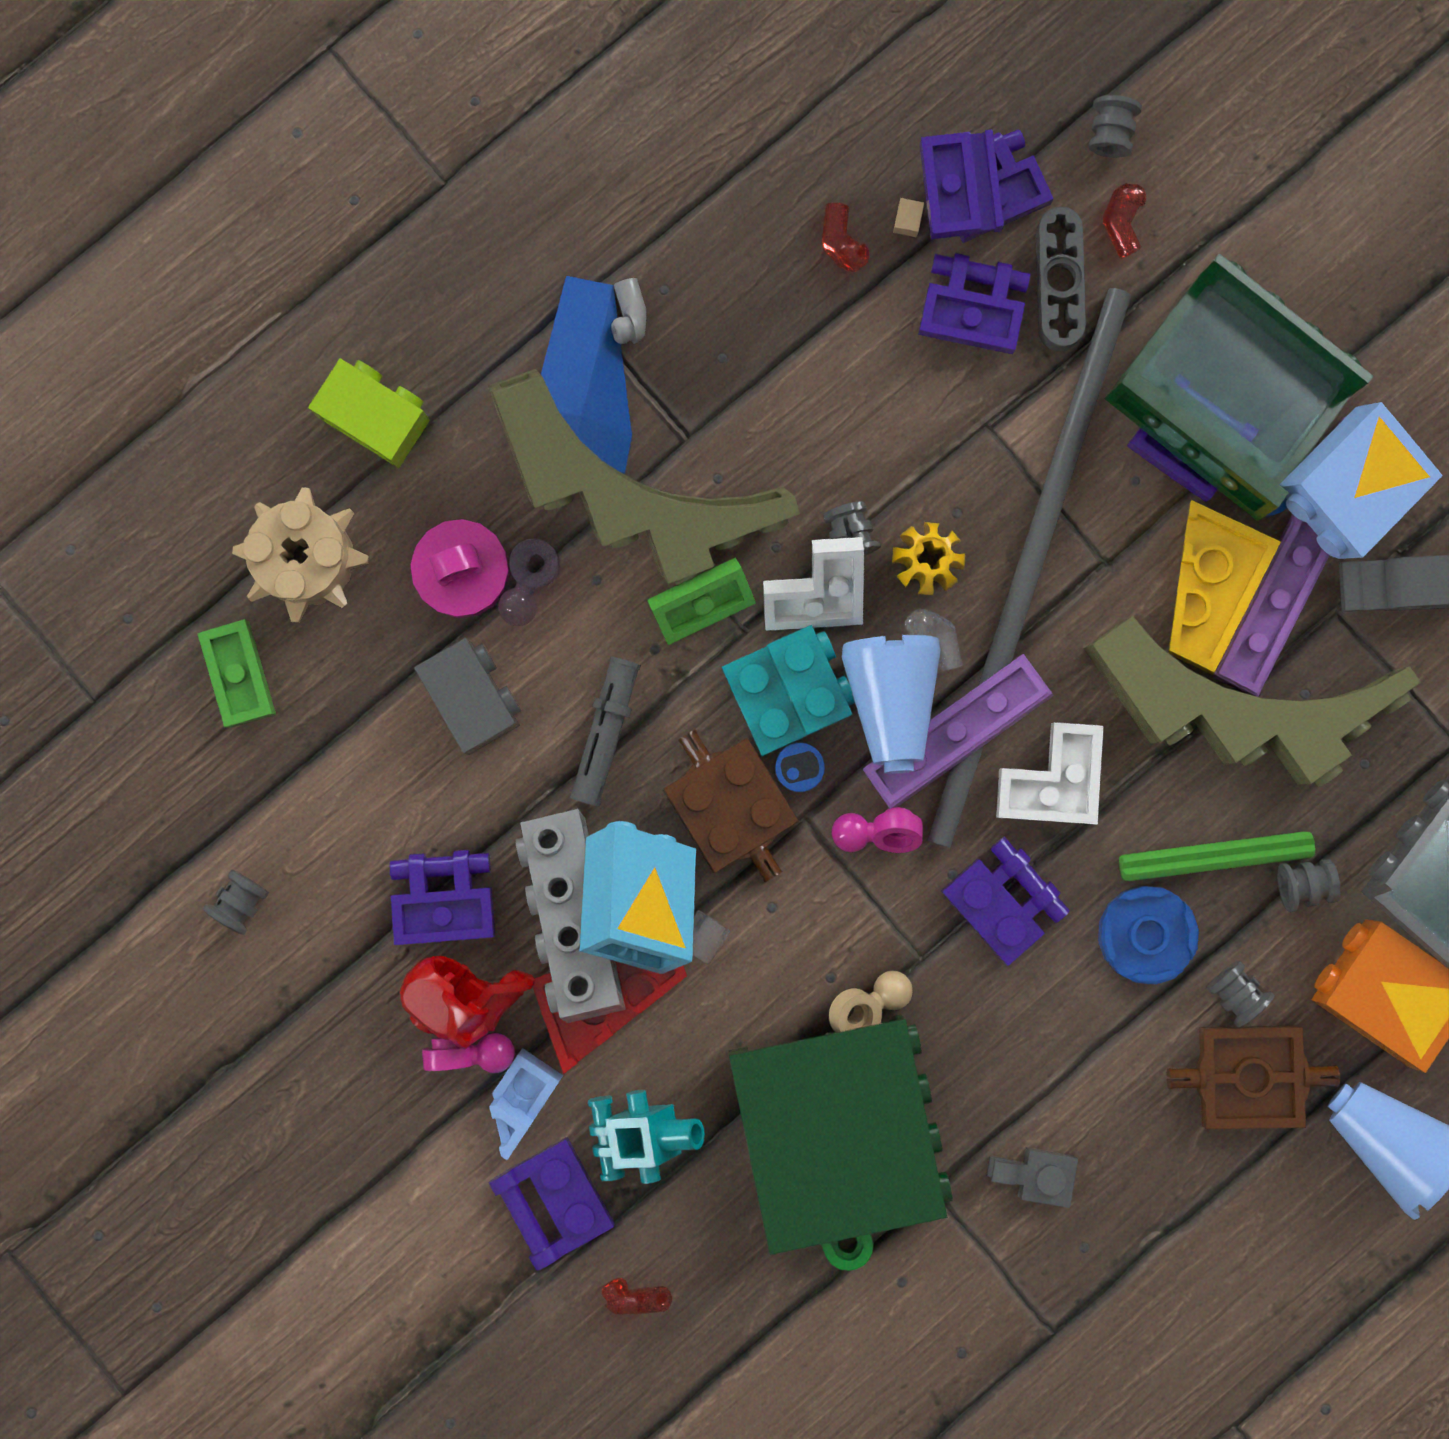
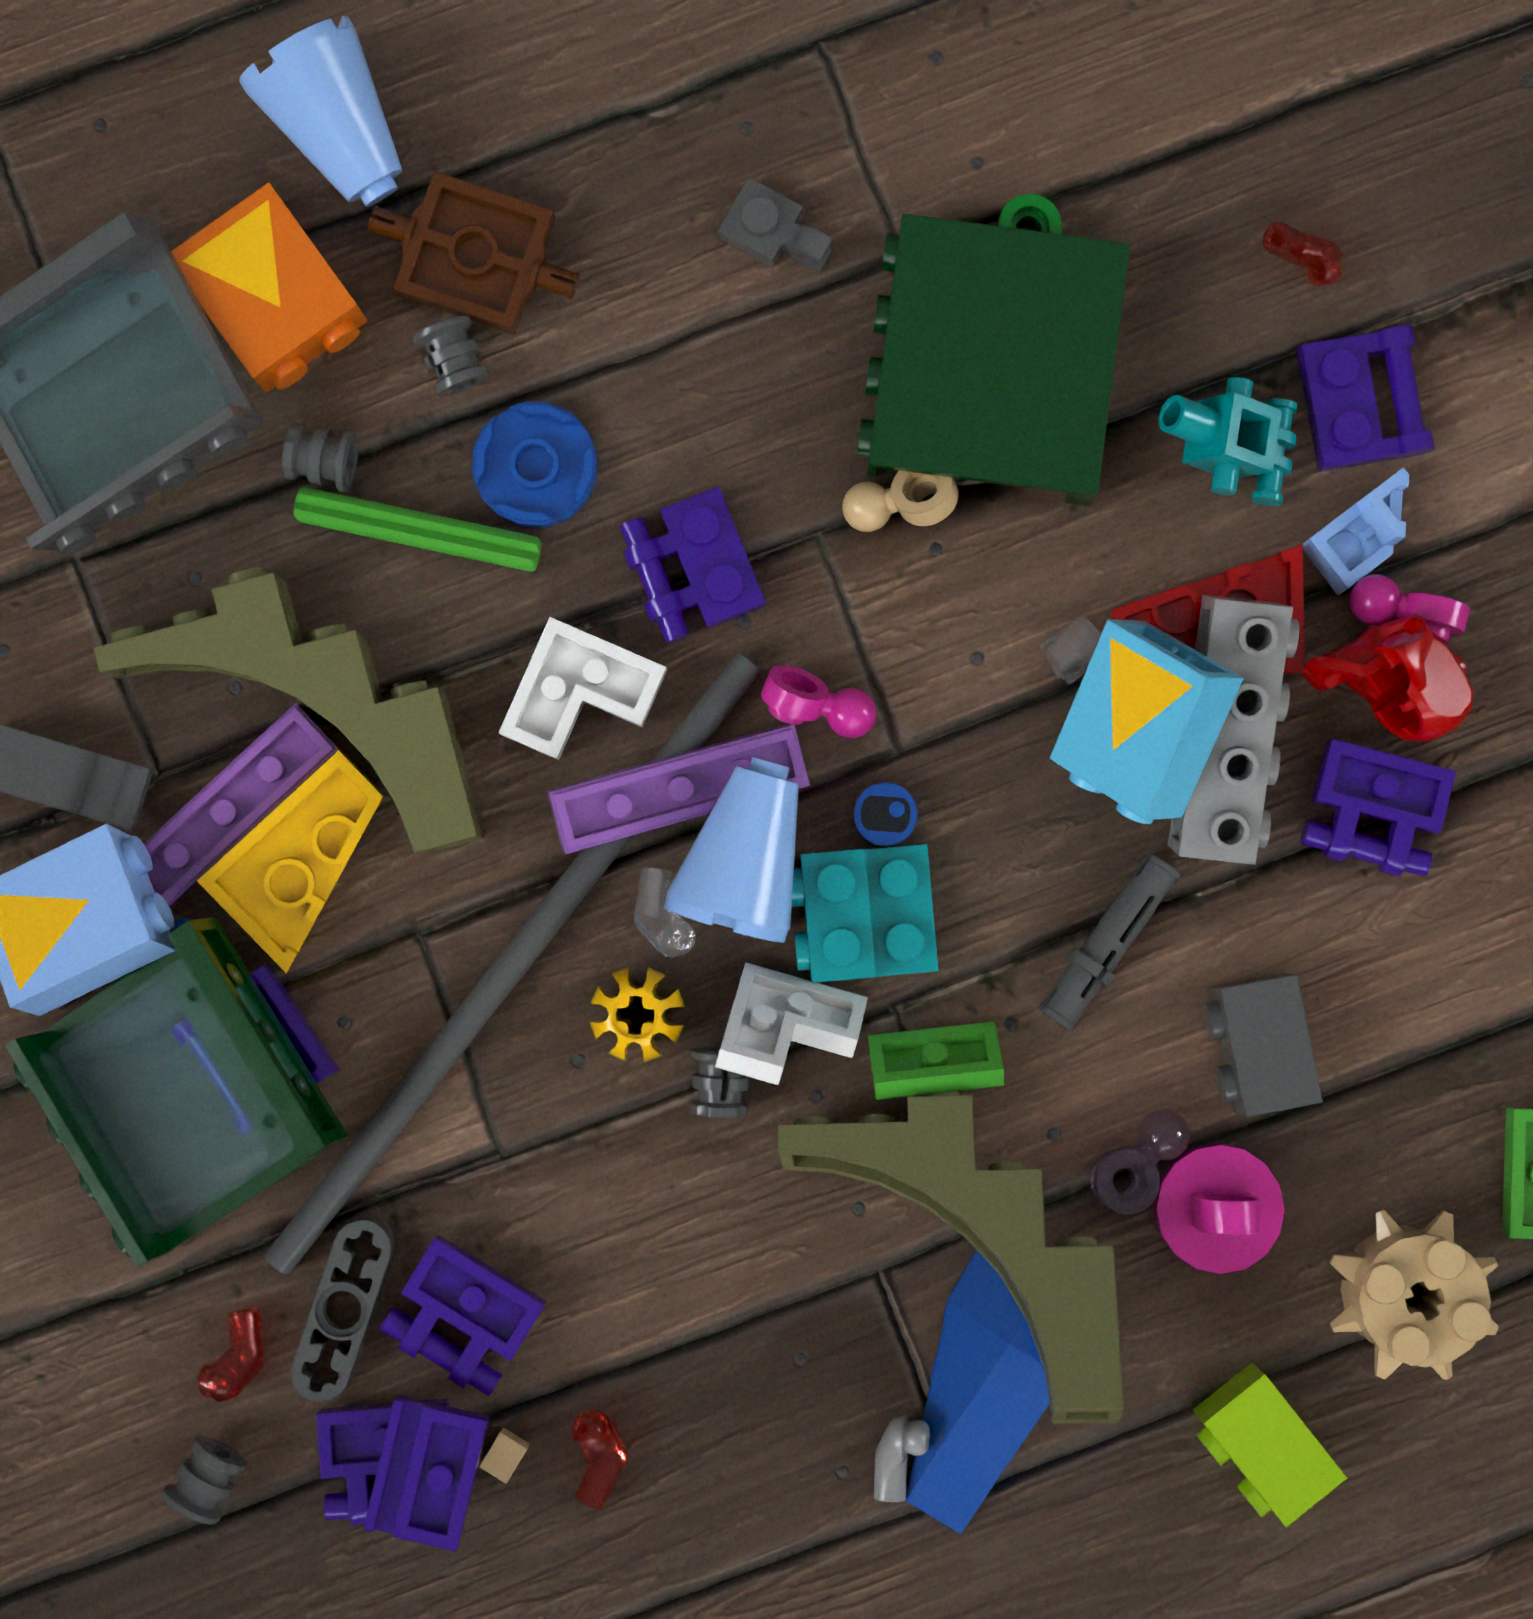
camera: 155 degrees left, 0 degrees up
(730, 805) = (986, 797): reddish brown plate -> none

